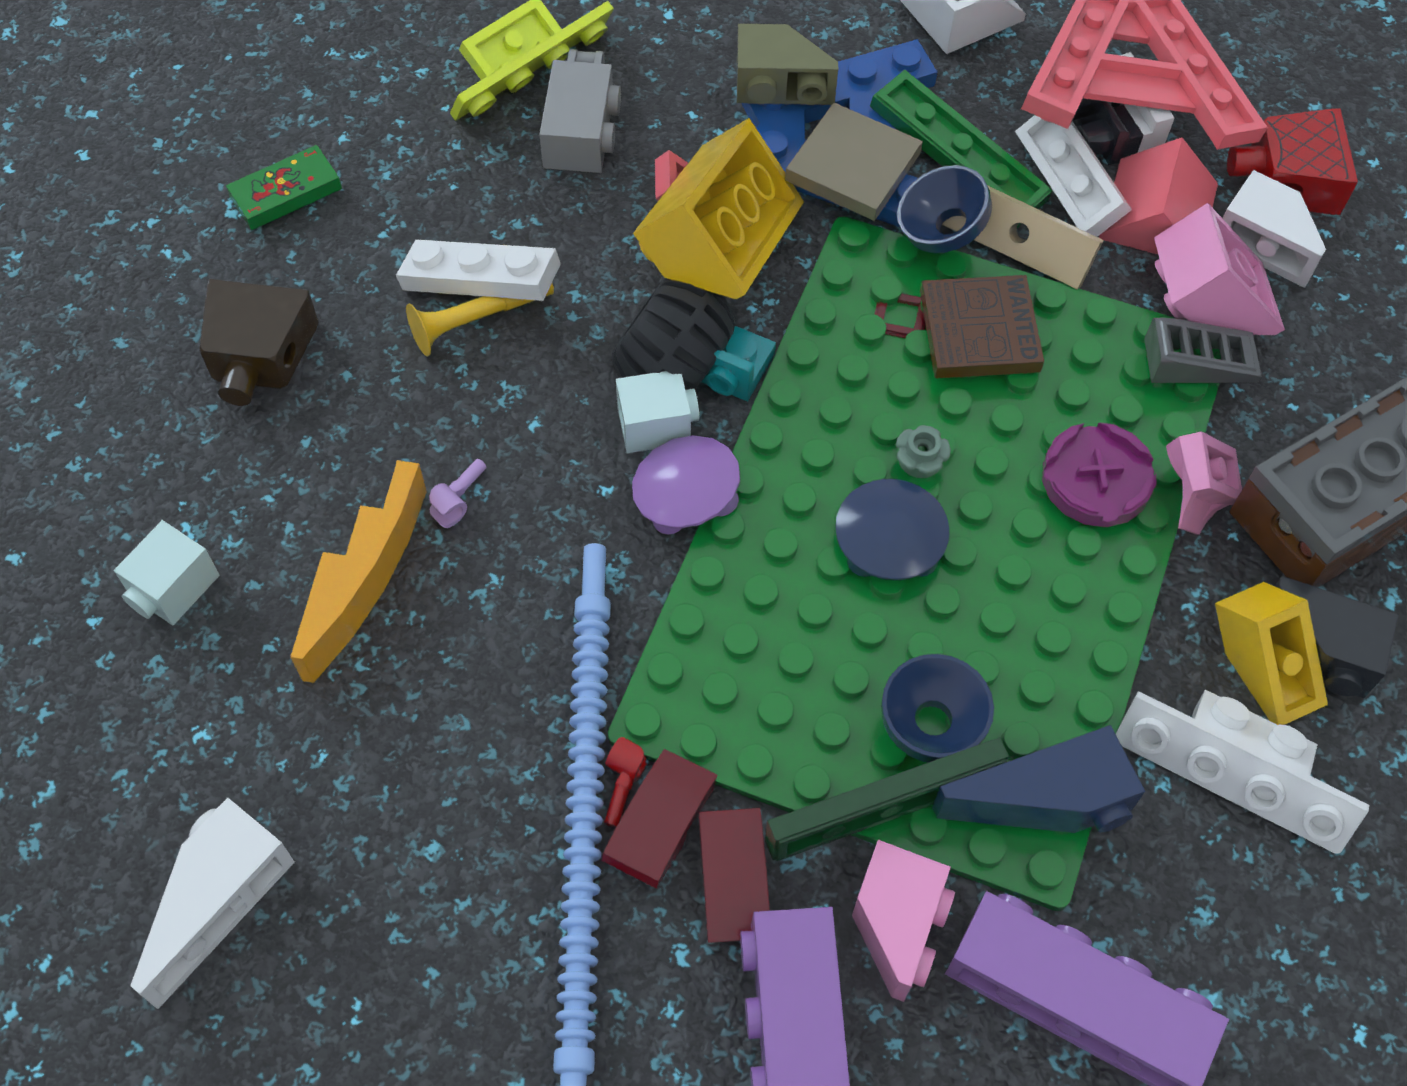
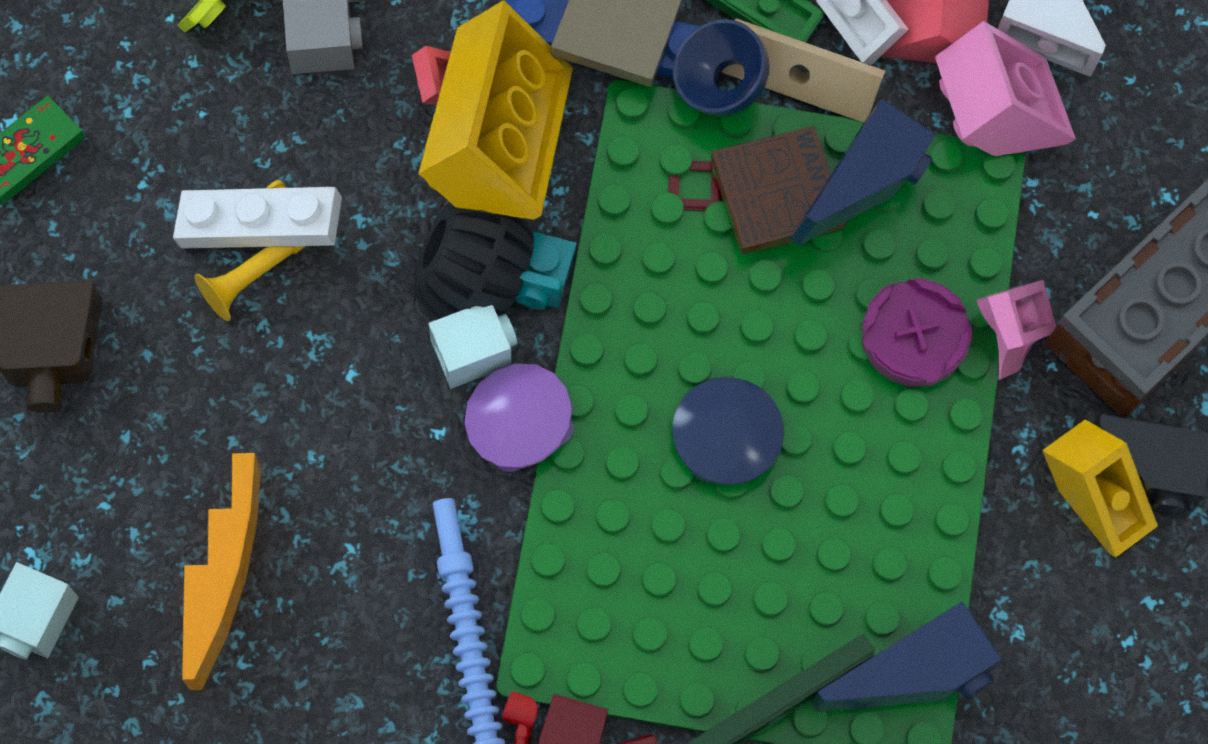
camera: 15 degrees left, 10 degrees up
(446, 503) = (284, 480): lavender hand -> none
(922, 463) = (737, 353): sand green plate -> none
(943, 684) = (811, 585): dark blue piece -> none
(1073, 317) = (872, 170): none -> dark blue slope
(1185, 367) = (967, 204): dark grey slope -> none
(1245, 762) = (1088, 599): white bracket -> none

